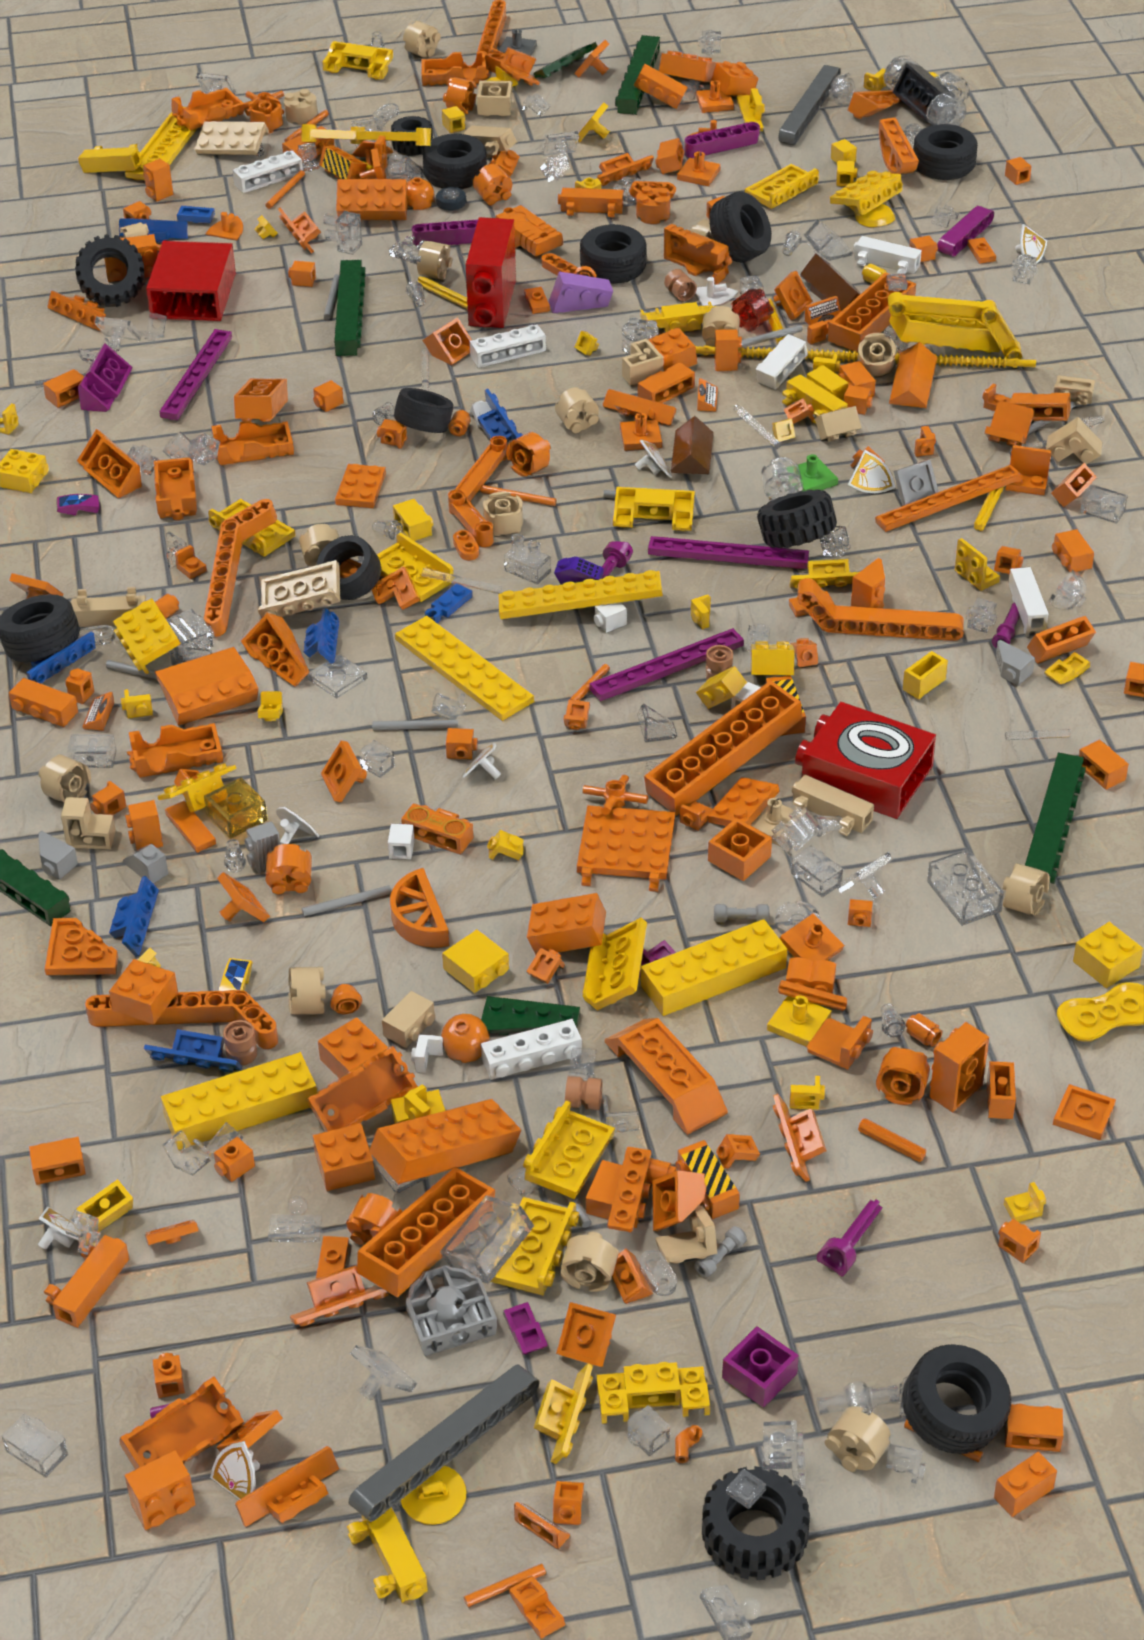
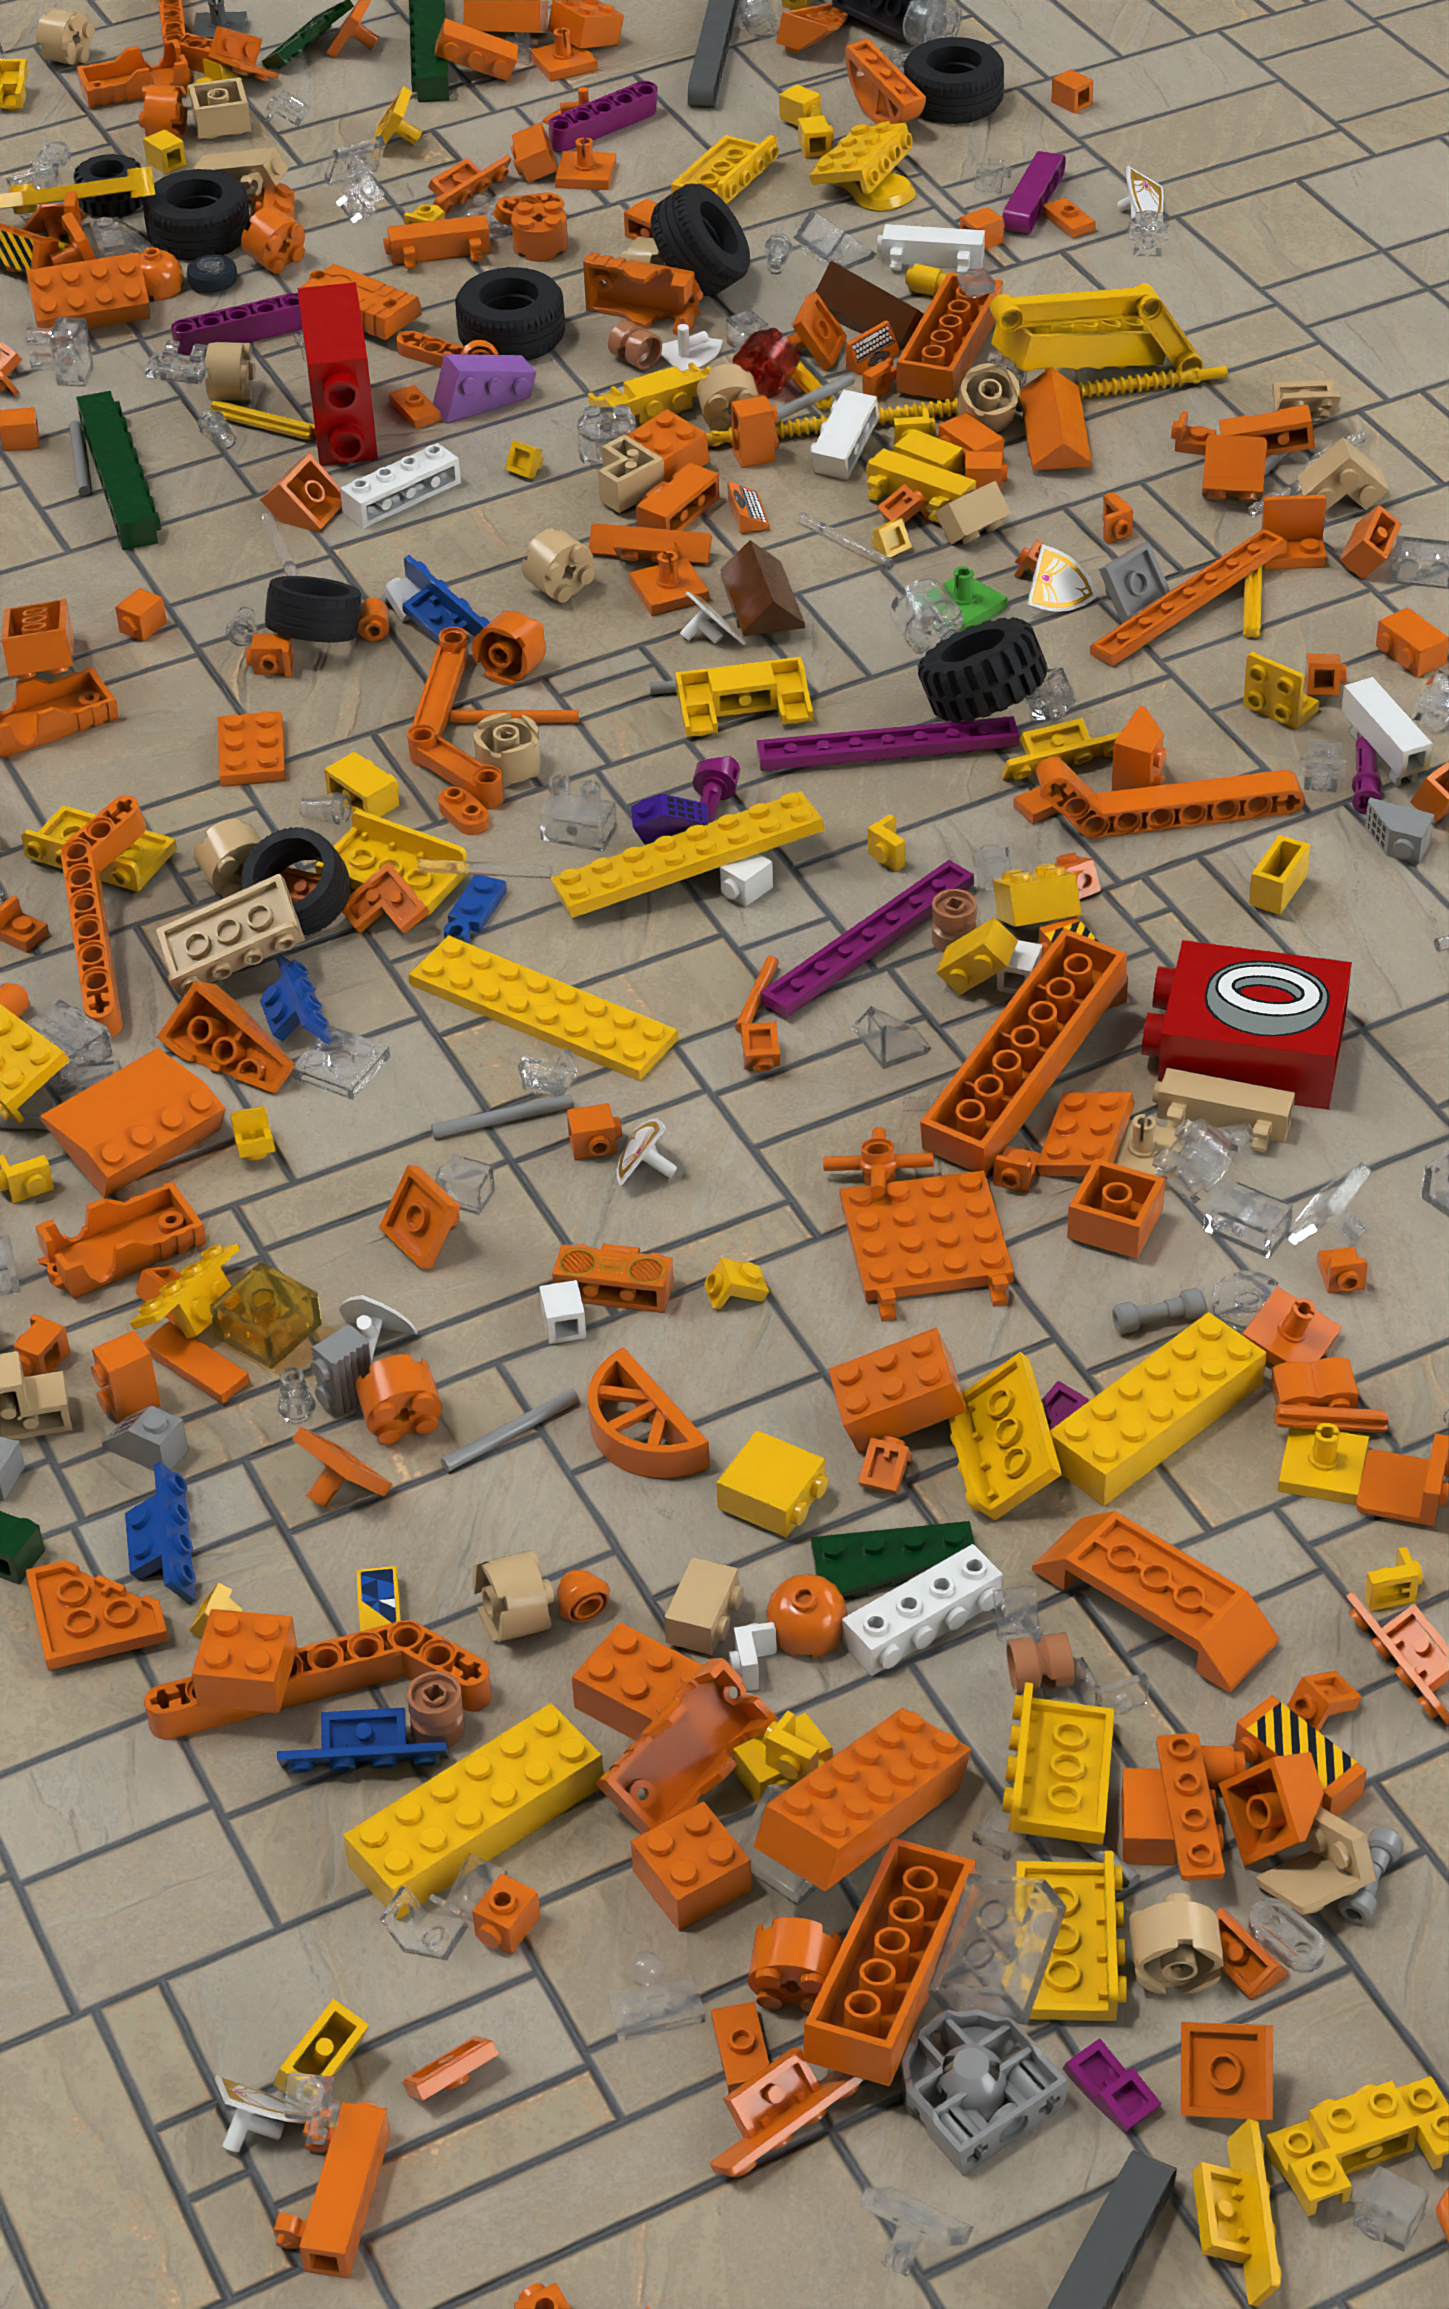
camera: 15 degrees left, 0 degrees up
(57, 1160) = (200, 1990): orange brick -> none
(751, 107) = (627, 59): yellow bracket -> none

